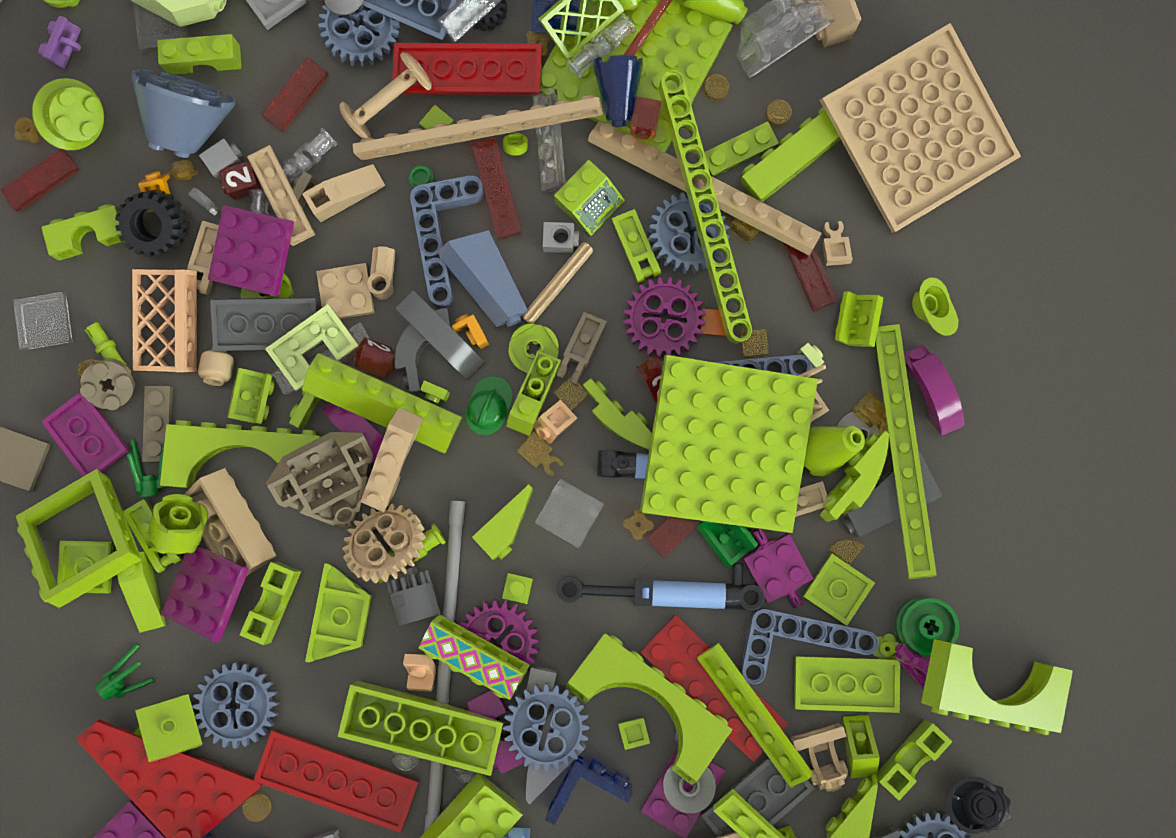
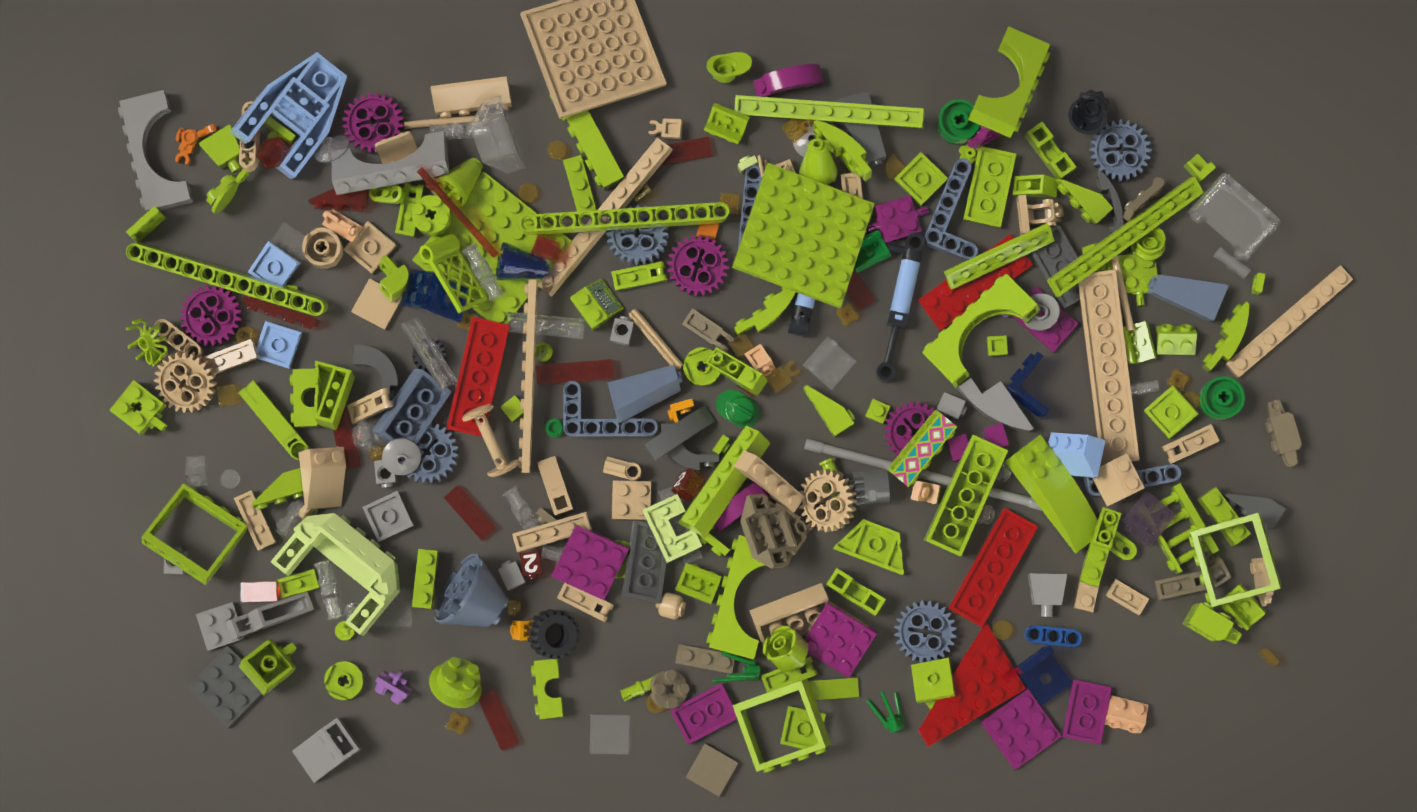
camera: 85 degrees left, 0 degrees up
(184, 325) = (636, 624): light nougat fence -> none
(203, 200) = (540, 595): clear tile -> none
(569, 733) = (974, 421): sand blue gear -> none
(650, 374) = (741, 281): clear red brick -> none

